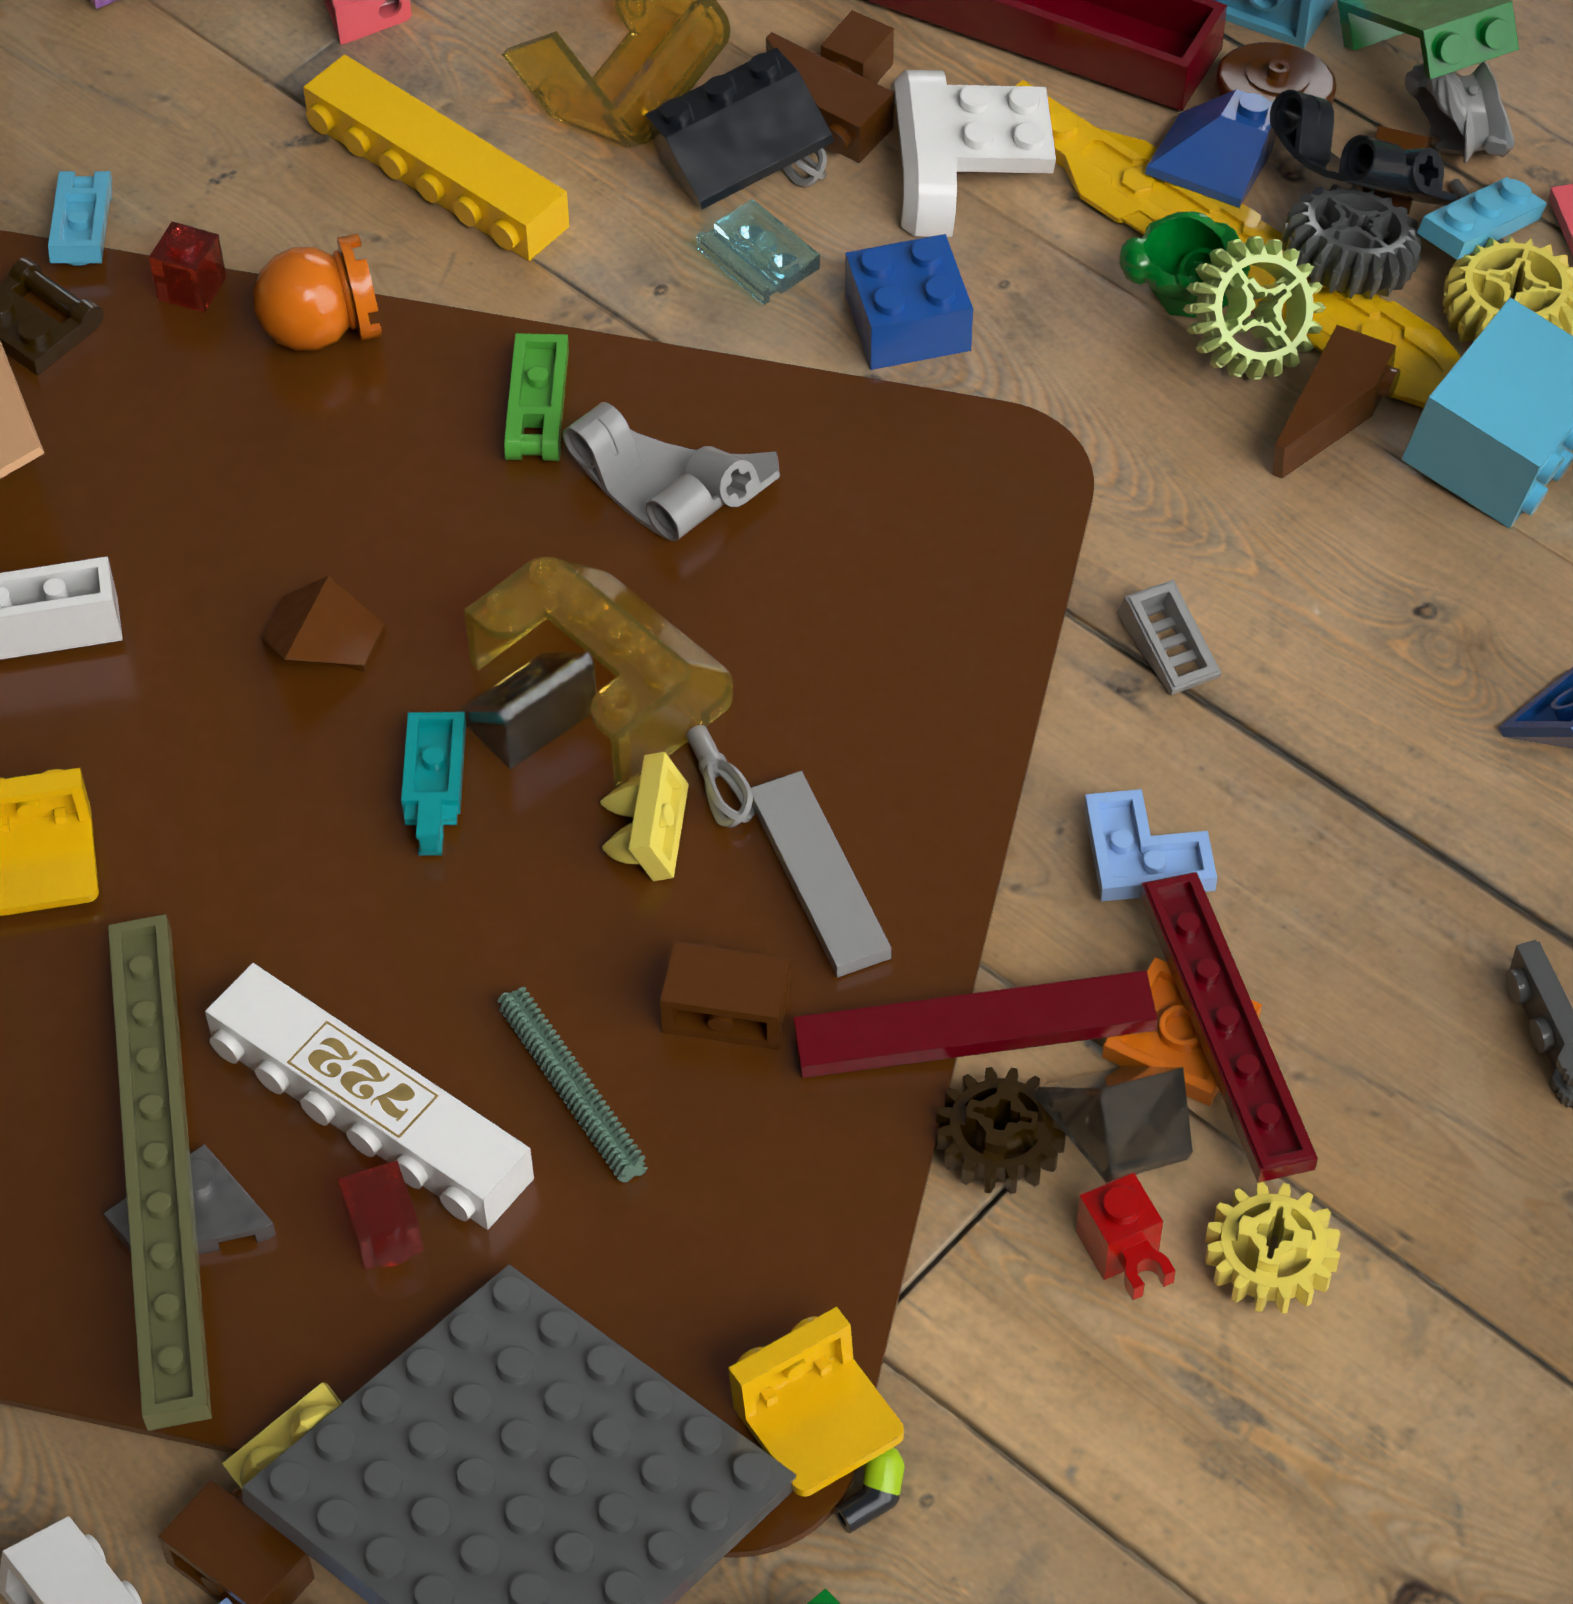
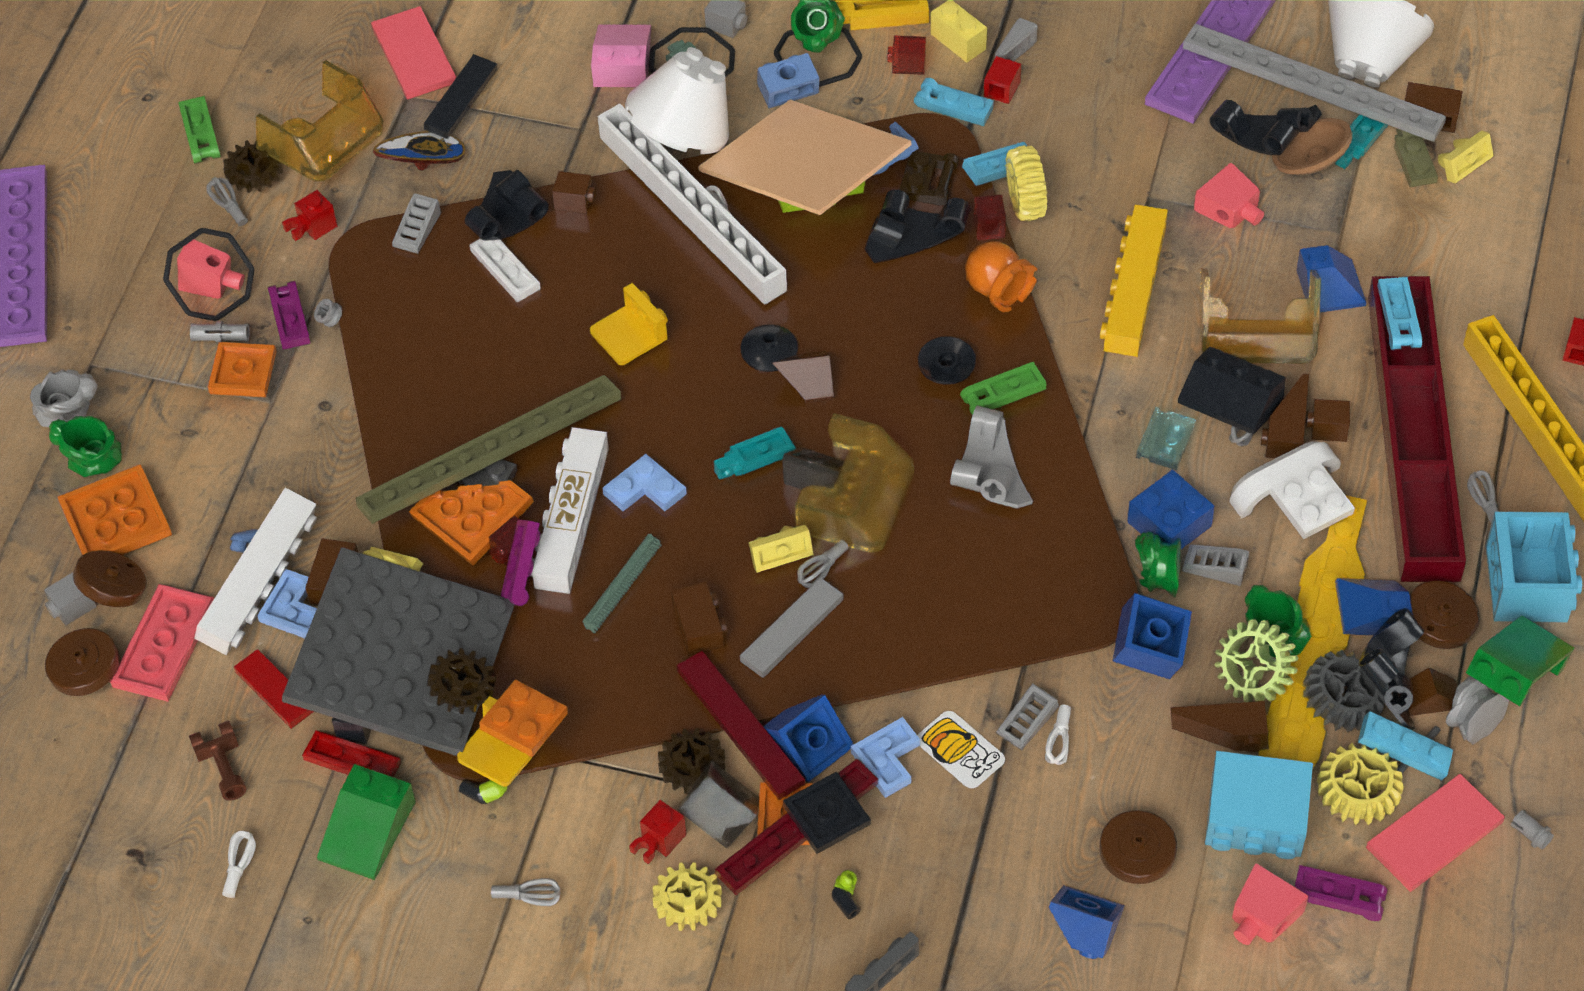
camera: 65 degrees right, 0 degrees up
(127, 383) = (905, 231): none -> black panel
(161, 180) = (1026, 183): none -> light yellow gear
(215, 689) = (760, 354): none -> black dish
(283, 1255) = (470, 515): none -> orange plate
(372, 957) = (647, 479): none -> light blue plate
(431, 440) = (943, 352): none -> black dish
(453, 1207) = (520, 563): none -> magenta plate
(669, 1401) = (461, 681): none -> dark brown gear
(818, 1326) = (523, 718): none -> orange plate
(1001, 347) = (1159, 562): none -> green piece
(1041, 265) = (1223, 573): none -> light grey slope
(1044, 933) = (810, 736): none -> blue slope
(1121, 1518) = (519, 891): none -> light grey piece
(1130, 412) = (1152, 636): none -> blue brick
(1173, 753) = (960, 749): none -> sticker
(1216, 609) = (1060, 728): none -> white piece
(1234, 963) = (826, 812): none -> black tile
(1372, 1025) = (843, 892): none -> arm
(1488, 599) = (1138, 847): none -> reddish brown wheel

